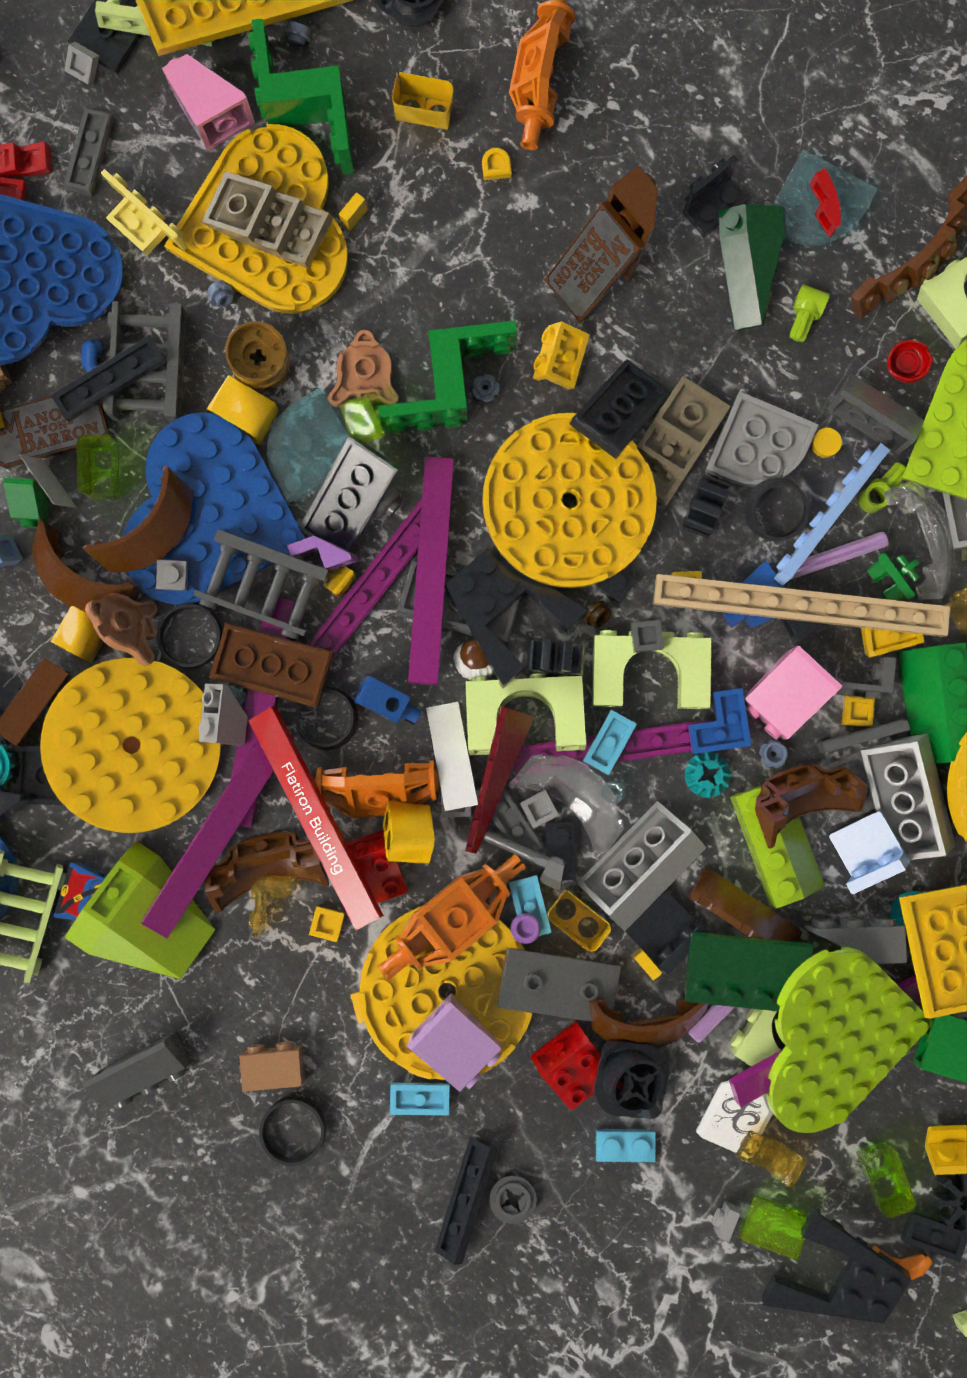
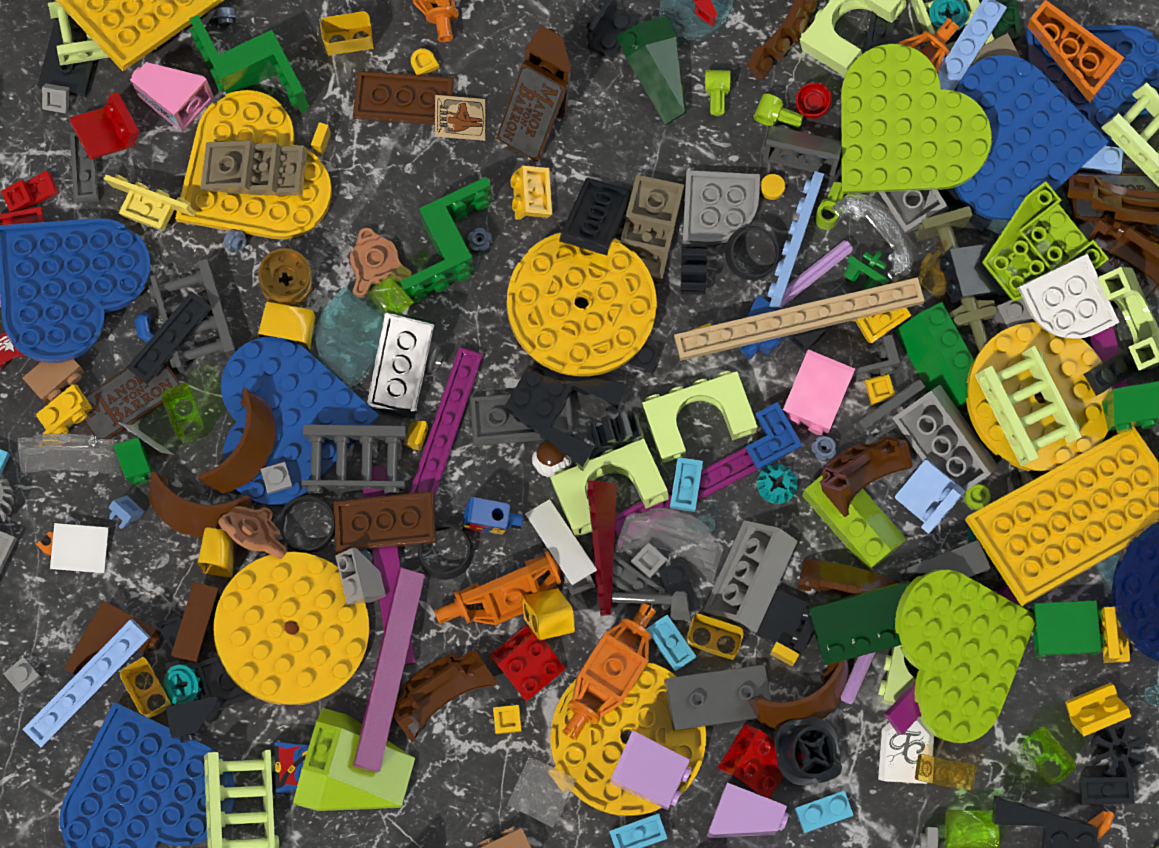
camera: 20 degrees left, 10 degrees down
(122, 117) = (106, 128): none -> red bracket
(278, 888) = (456, 701): clear yellow bracket -> none
(315, 818) = (467, 629): tile -> none
(331, 555) = (405, 414): medium lavender slope -> none
(334, 1016) = (542, 792): none -> clear tile
(431, 571) = (489, 399): magenta tile -> none
(459, 198) = (399, 97): none -> reddish brown tile
(513, 242) = (459, 117): none -> sticker
(525, 928) = (673, 659): medium lavender tile -> none
(539, 1126) = (746, 814): none -> lavender slope
(597, 614) = (638, 386): dark brown plate -> none
(646, 636) = (684, 387): dark grey tile -> none
(857, 356) = (771, 110): none -> lime axle
(920, 869) = (977, 497): none -> lime tile

